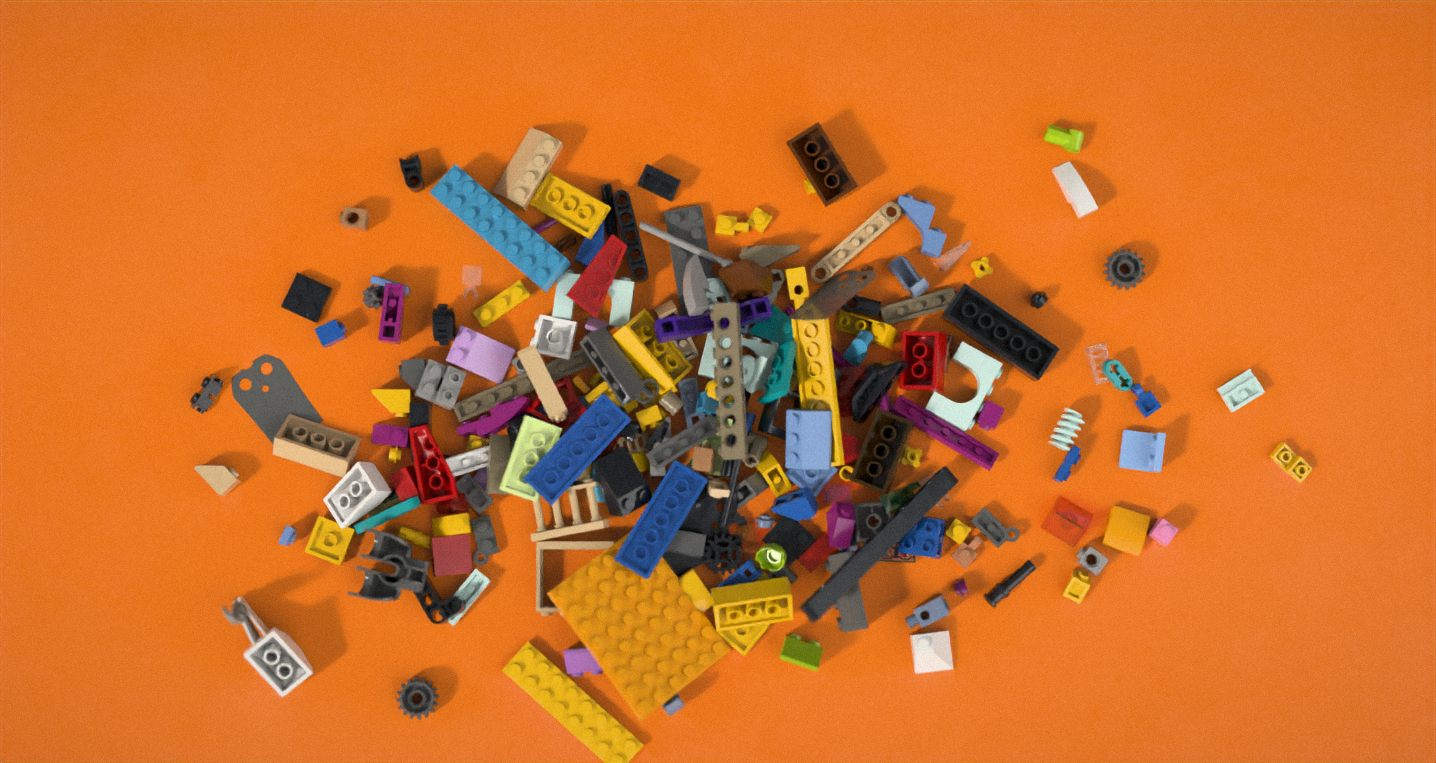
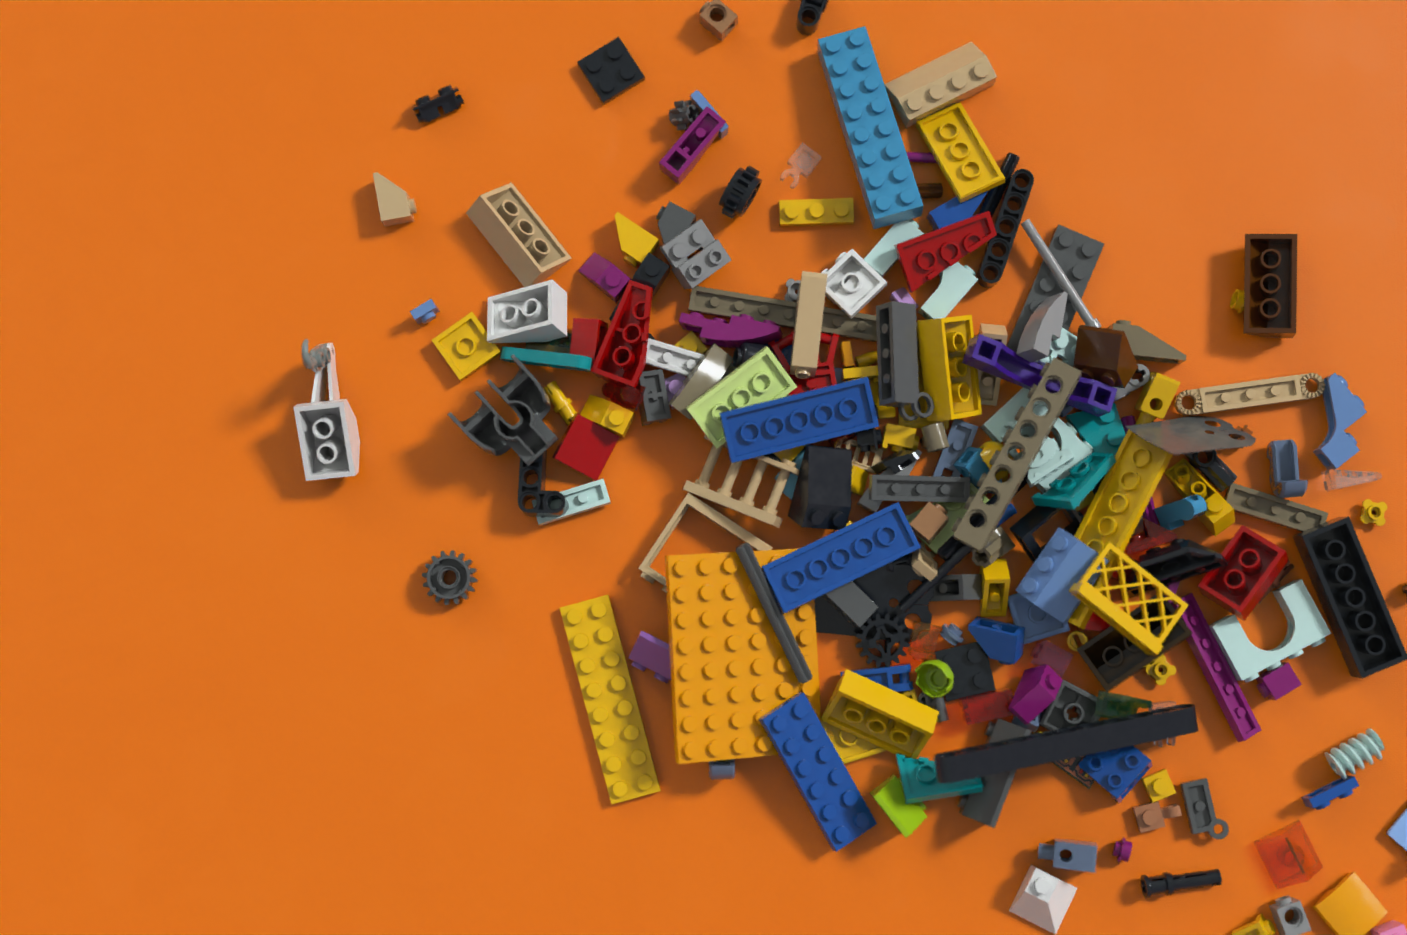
camera: 40 degrees right, 0 degrees up
(272, 407) = (500, 164): dark grey piece -> none
(331, 333) = (612, 124): blue brick -> none
(395, 454) = (596, 298): yellow plate -> none
(480, 355) = (757, 251): lavender slope -> none
(485, 538) = (633, 453): dark grey hinge -> none
(641, 583) = (774, 613): none -> dark grey axle
(659, 183) = (1074, 190): black hinge -> none
(696, 590) = (827, 660): yellow slope -> none
(727, 226) = (1119, 285): yellow plate -> none
(735, 665) = (818, 771): none -> blue plate
(759, 220) = (1157, 301): yellow plate -> none
(805, 631) = (921, 783): none -> teal wing
(856, 443) = (1117, 617): none -> yellow fence

